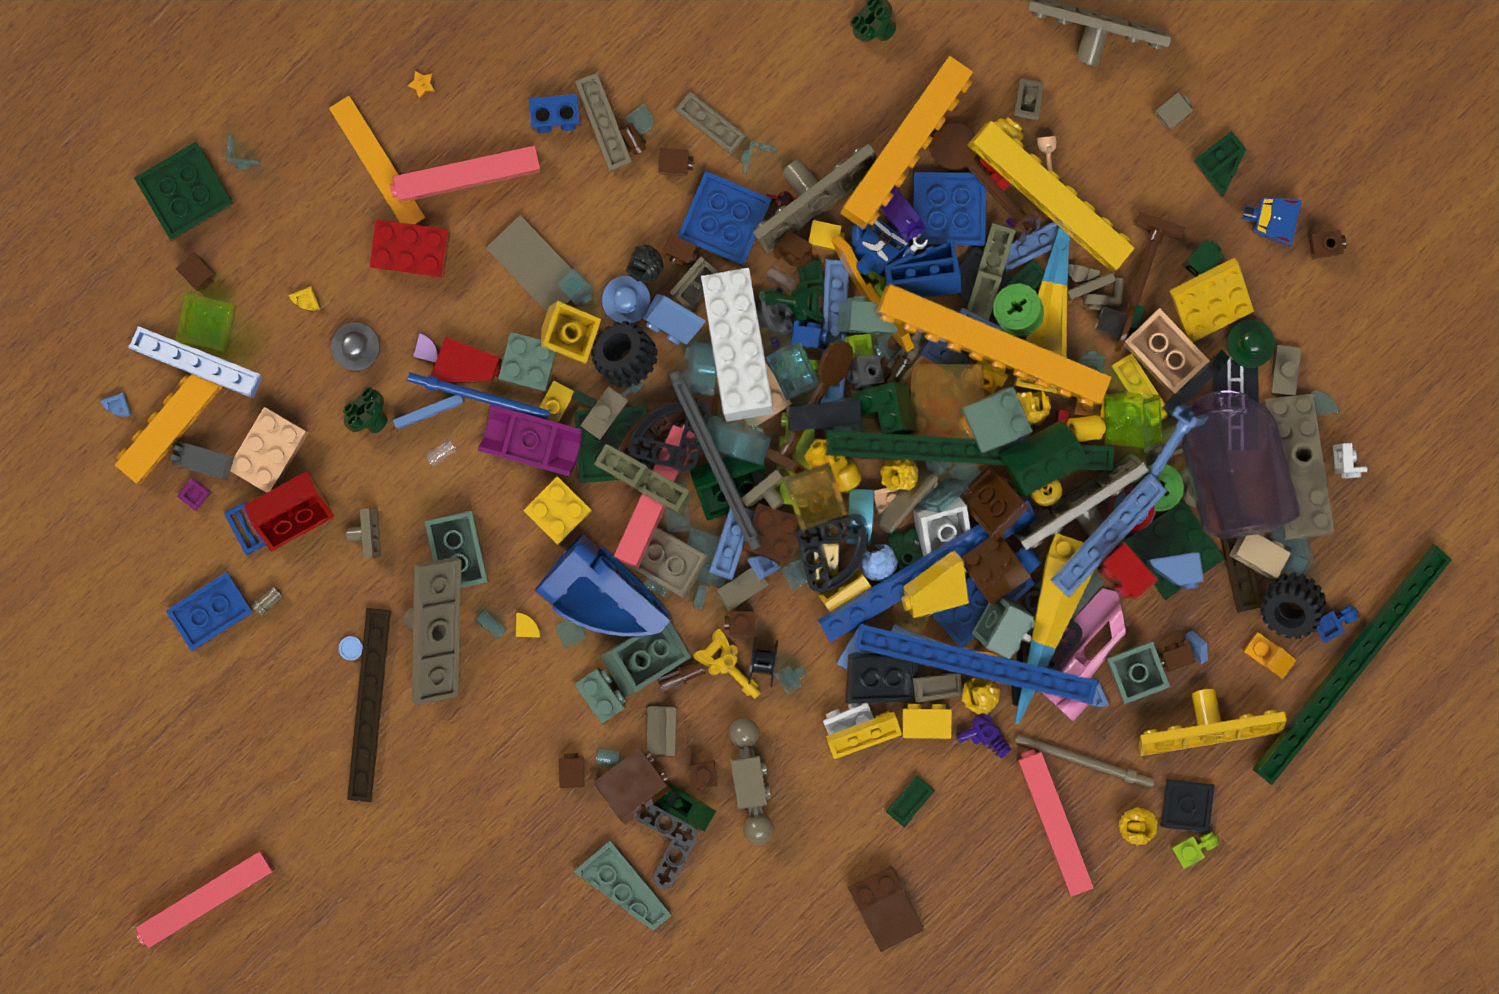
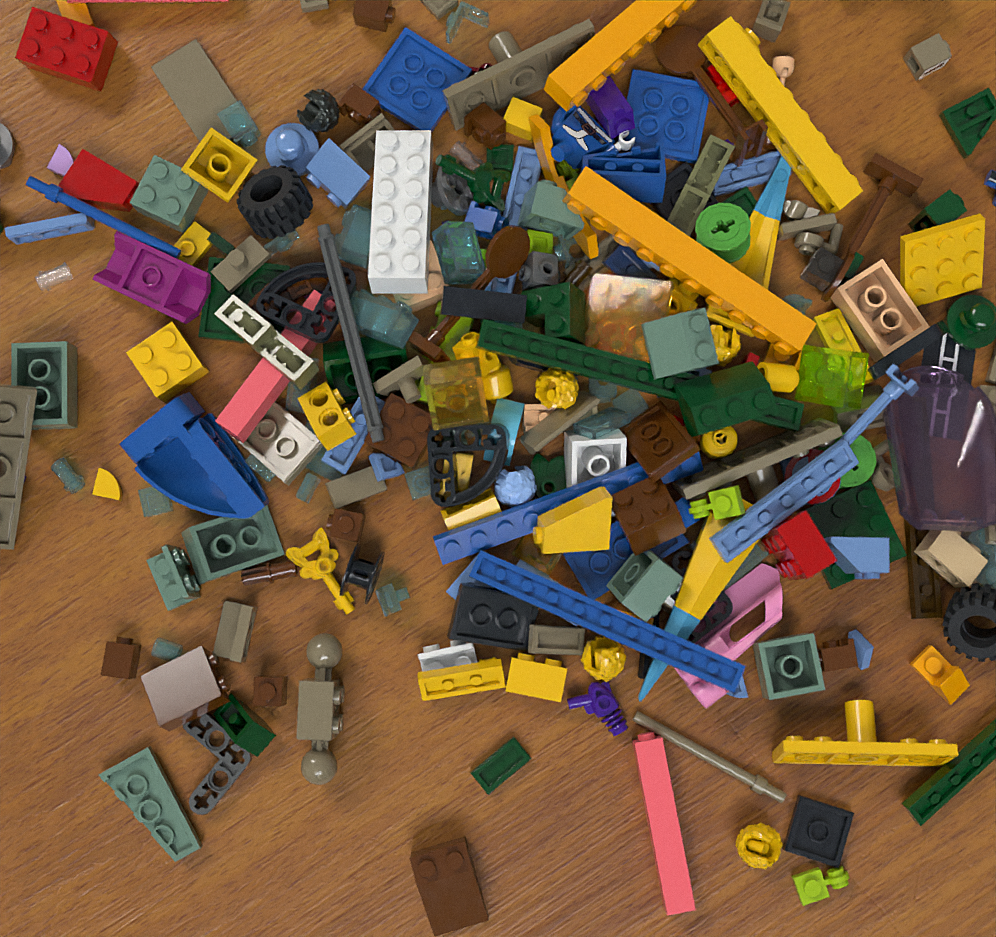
camera: 10 degrees right, 5 degrees down
(708, 533) = (327, 416): none -> yellow brick
(1057, 546) = (724, 503): none -> lime plate

